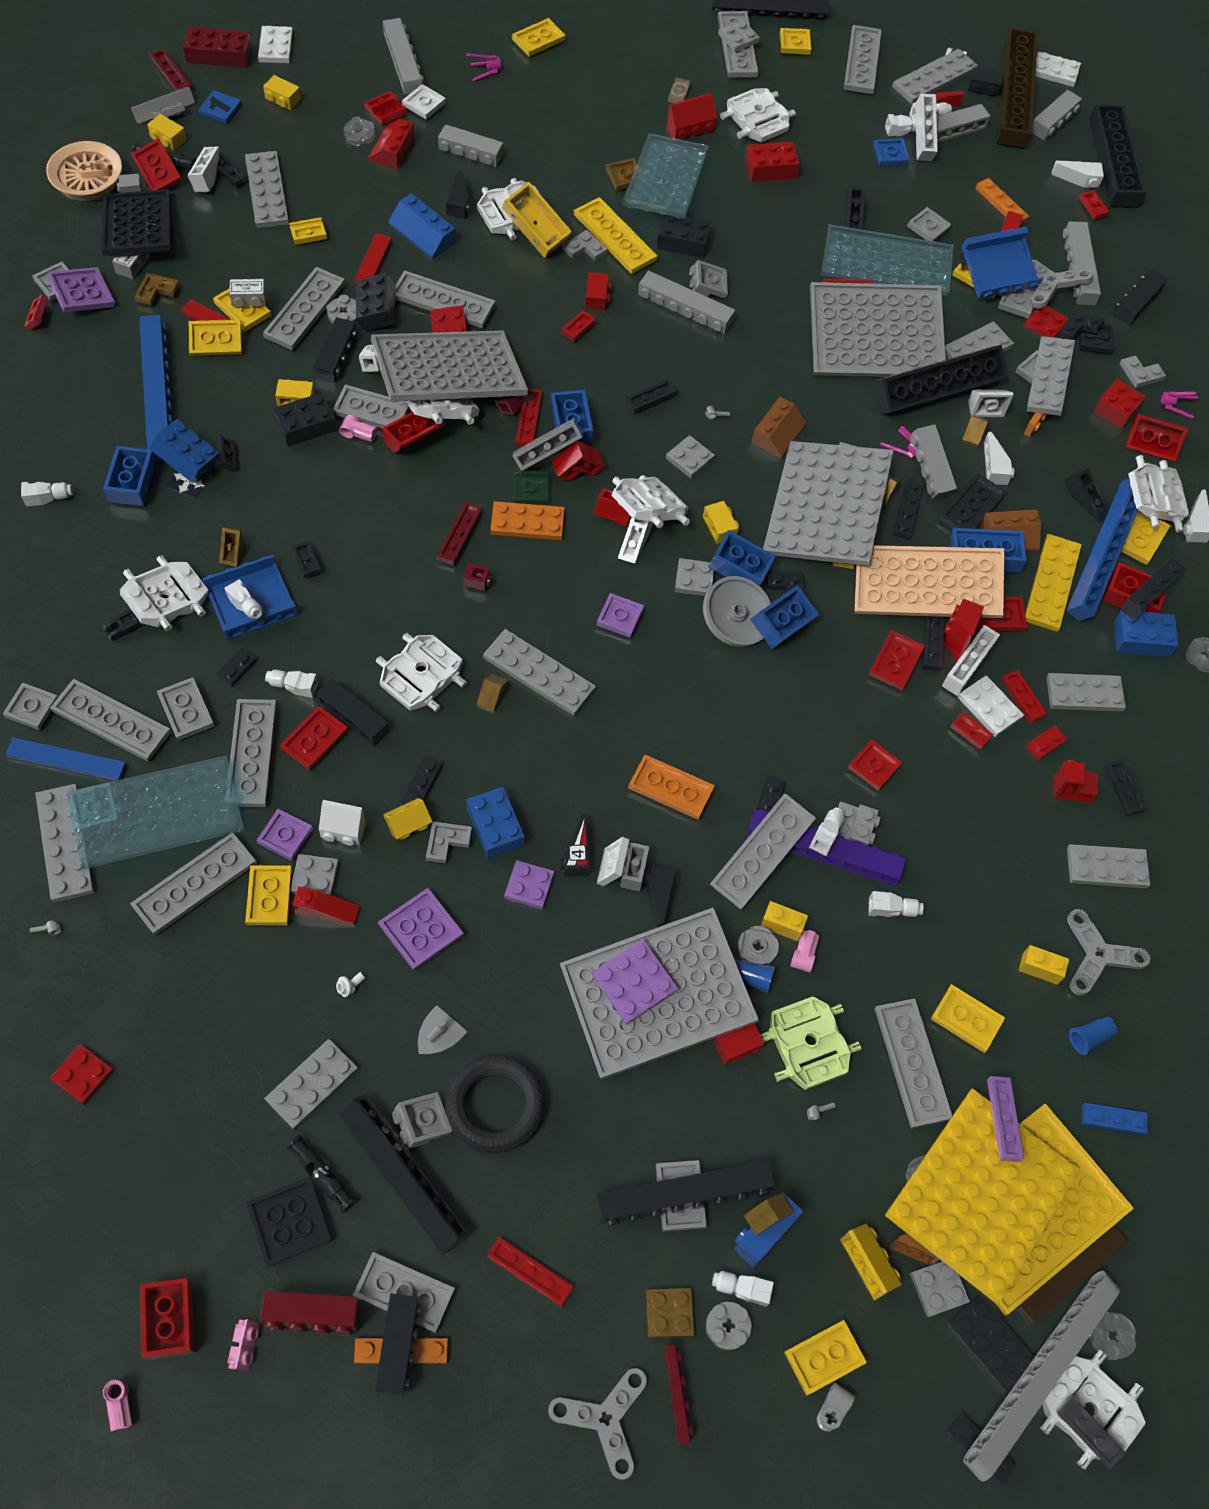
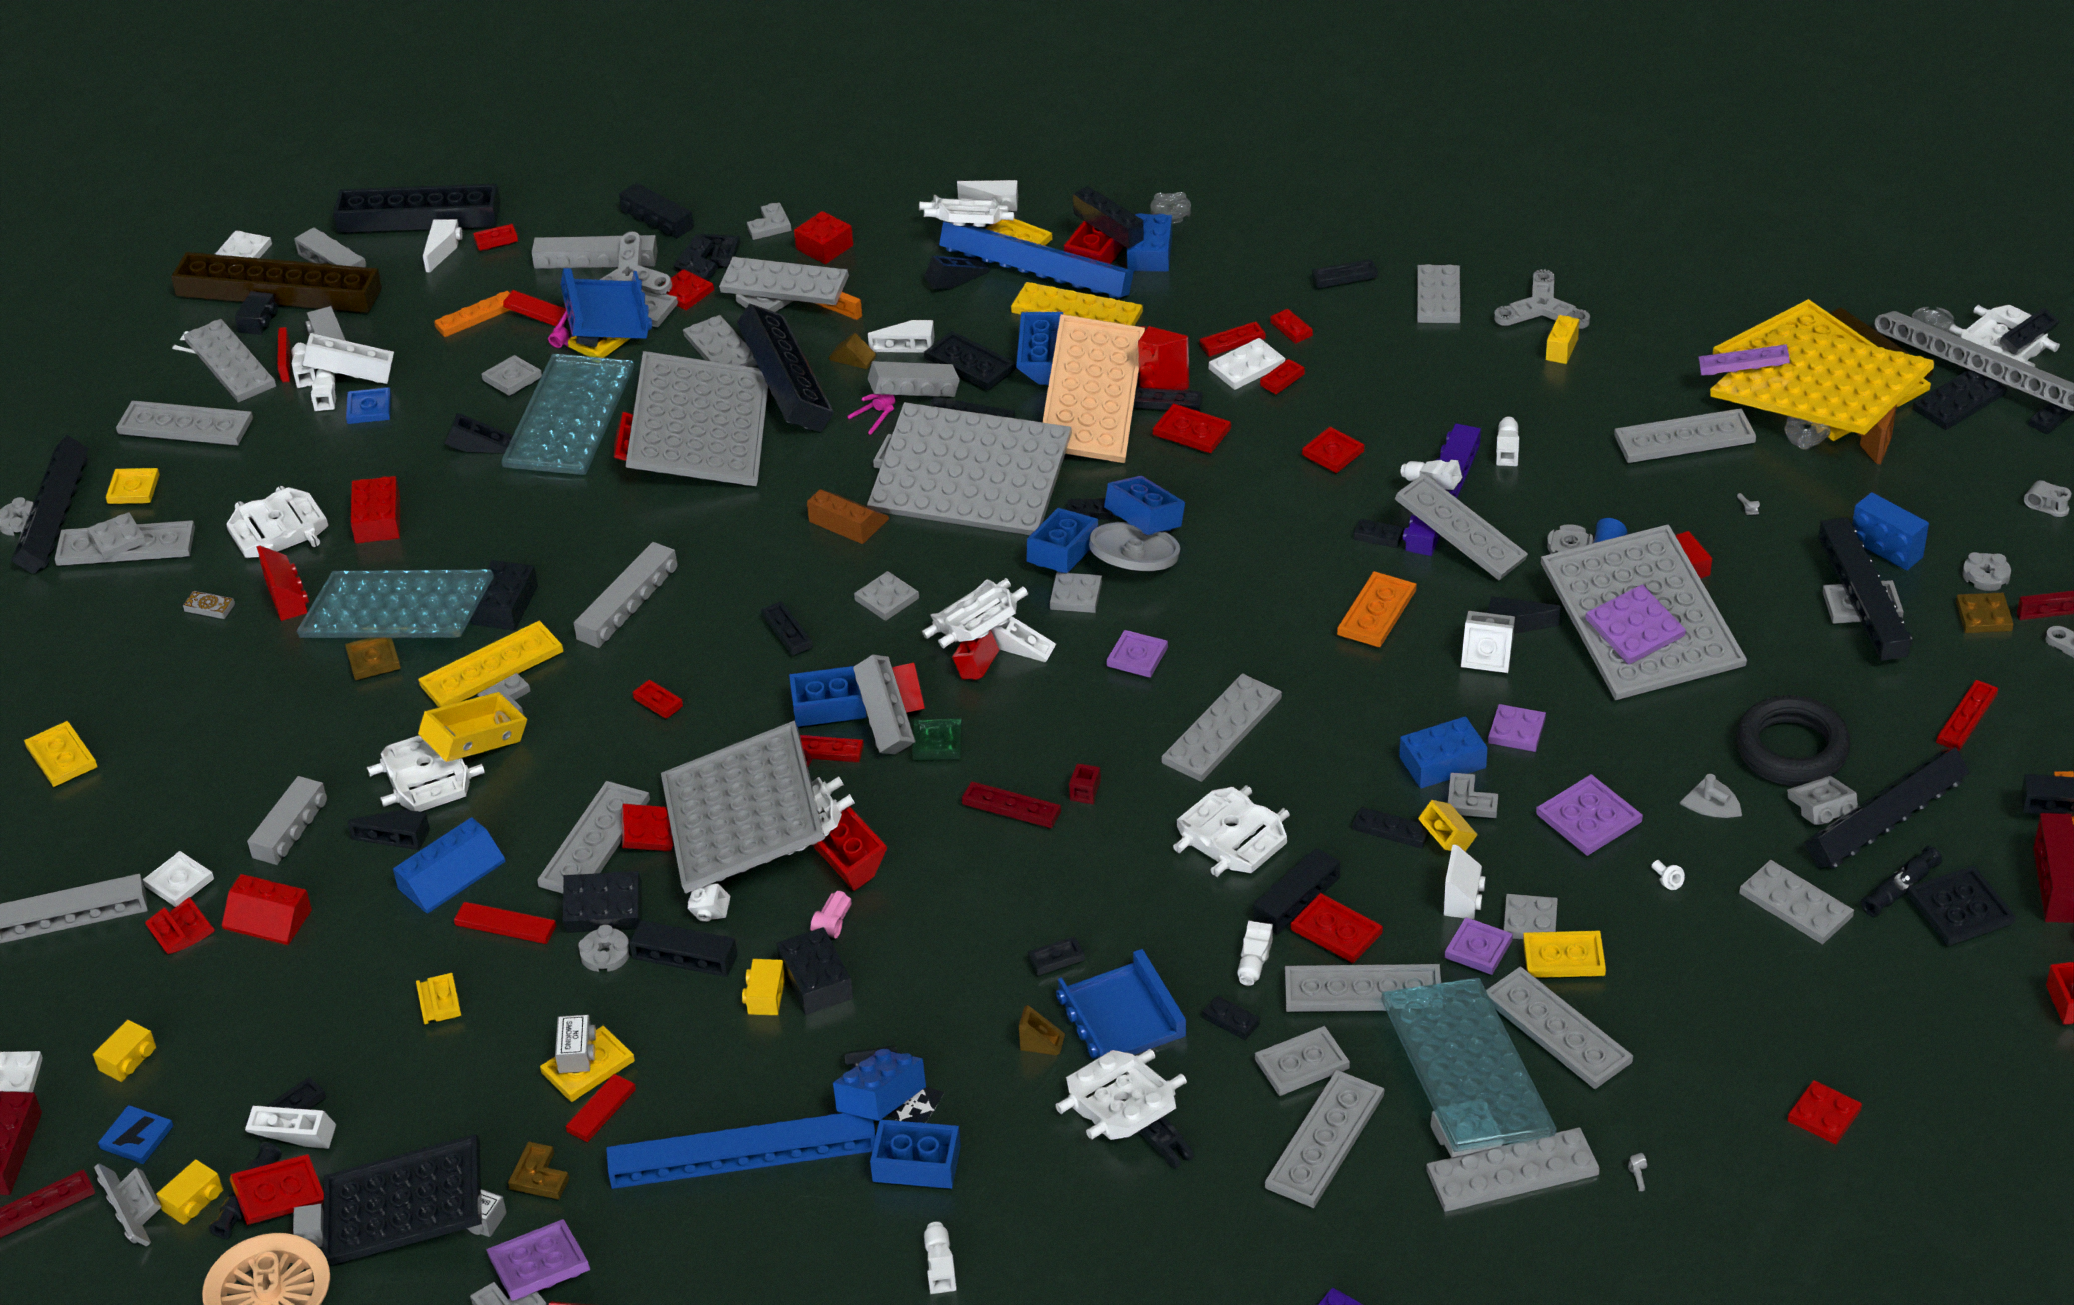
camera: 80 degrees left, 20 degrees down
(30, 706) = (1310, 1228): light grey plate -> none
(66, 759) = (1388, 1183): blue tile -> none
(215, 337) = (651, 1085): yellow plate -> none
(242, 600) = (1136, 999): white piece -> none
(266, 189) = (336, 1059): light grey plate -> none
(304, 308) = (597, 991): light grey plate -> none
(324, 906) = (1572, 903): red slope -> none
(355, 125) = (225, 944): clear plate -> none
(369, 407) = (793, 902): light grey plate -> none
(386, 1277) = (2004, 816): light grey plate -> none
(492, 64) = (111, 804): dark pink plant -> none
(492, 691) = (1254, 764): pearl gold slope -> none
(527, 520) = (988, 744): orange plate -> none
(576, 852) = (1472, 684): slope -> none
(597, 291) = (597, 680): red brick -> none
(708, 279) = (589, 573): light grey plate -> none
(711, 414) = (815, 575): light grey hand -> none
(719, 520) = (996, 564): yellow brick -> none
(745, 1287) = (1947, 555): white piece -> none
(768, 1214) = (1883, 511): pearl gold slope -> none
(784, 921) = (1539, 520): yellow brick -> none
(796, 1051) = (1695, 508): yellowish green piece -> none
(804, 954) = (1578, 508): bright pink piece -> none
(825, 1357) = (2001, 504): yellow plate -> none
(858, 823) = (1402, 455): light grey plate -> none
(871, 1261) = (1903, 468): yellow slope -> none
(939, 1288) = (1915, 431): light grey plate -> none
(968, 1018) = (1629, 396): yellow plate -> none
(970, 660) = (1210, 373): white brick -> none
(989, 402) = (816, 334): white slope -> none
(1023, 520) = (1004, 328): dark orange slope -> none
(1075, 783) = (1345, 303): red brick -> none
(1085, 692) = (1224, 294): light grey plate -> none
(1092, 1034) = (1635, 313): blue plant -> none
(1114, 1119) = (1717, 309): blue plate -> none
(1156, 437) = (873, 214): red slope -> none
(1170, 398) = (816, 201): dark pink plant -> none

